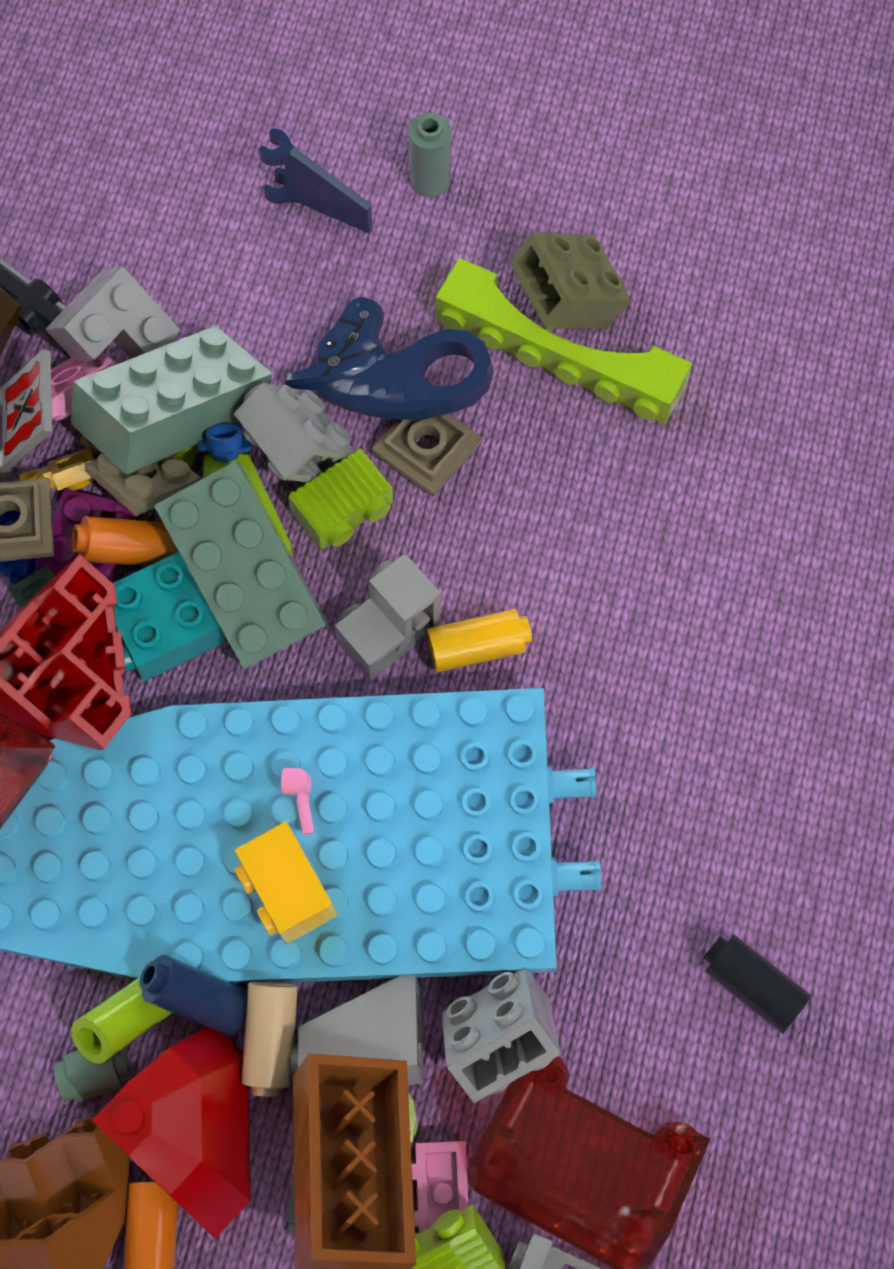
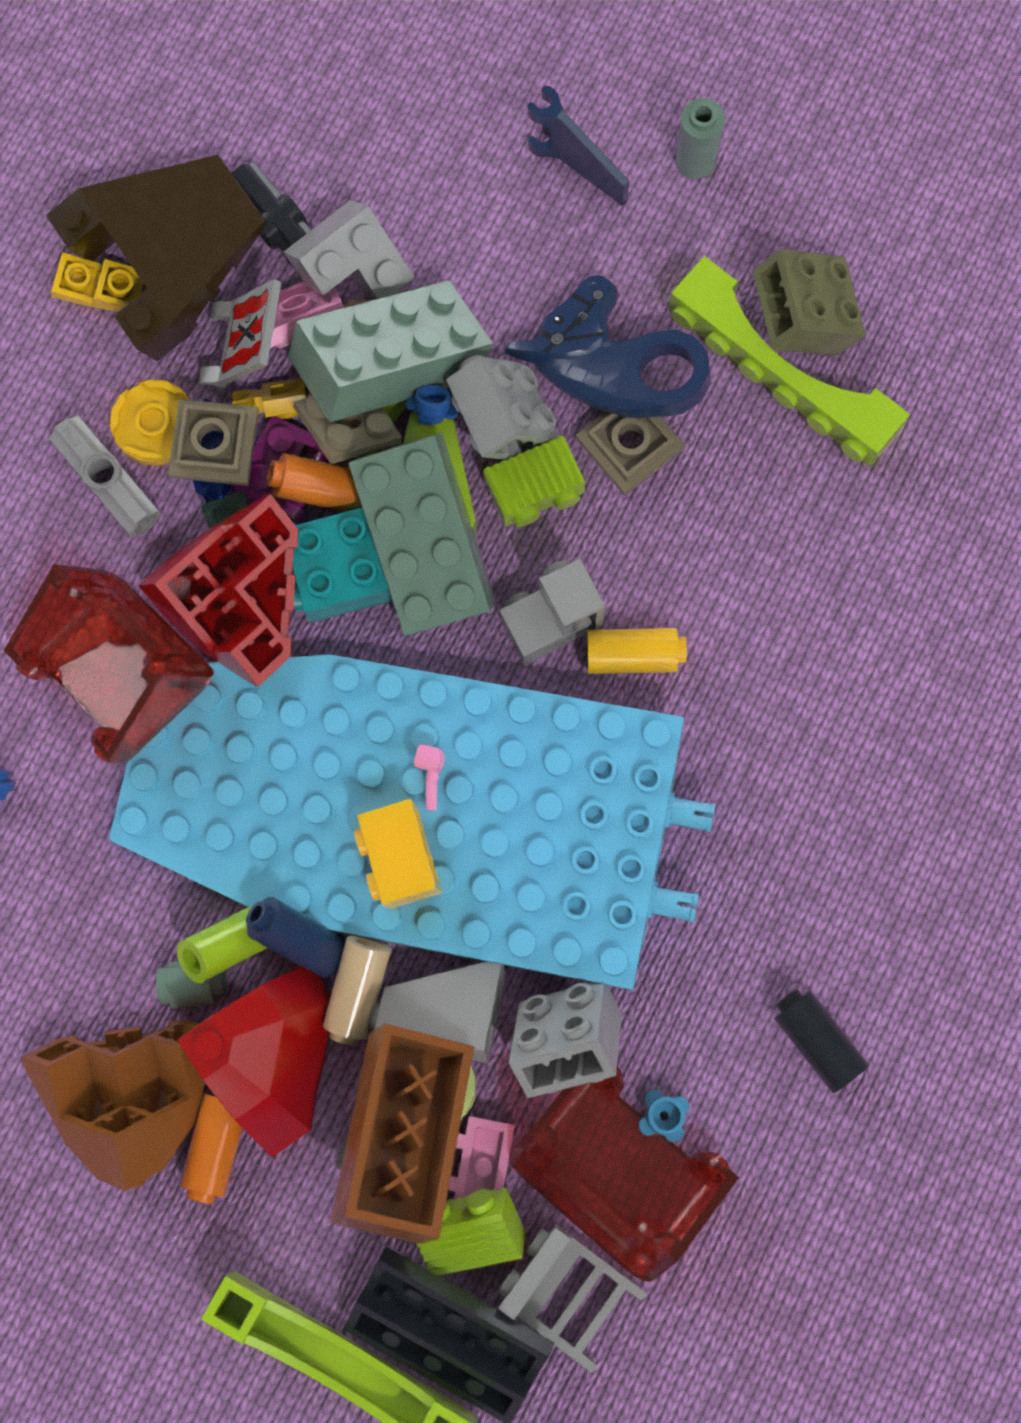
camera: 20 degrees right, 10 degrees up
(627, 1087) = (674, 1107): none -> dark azure plate

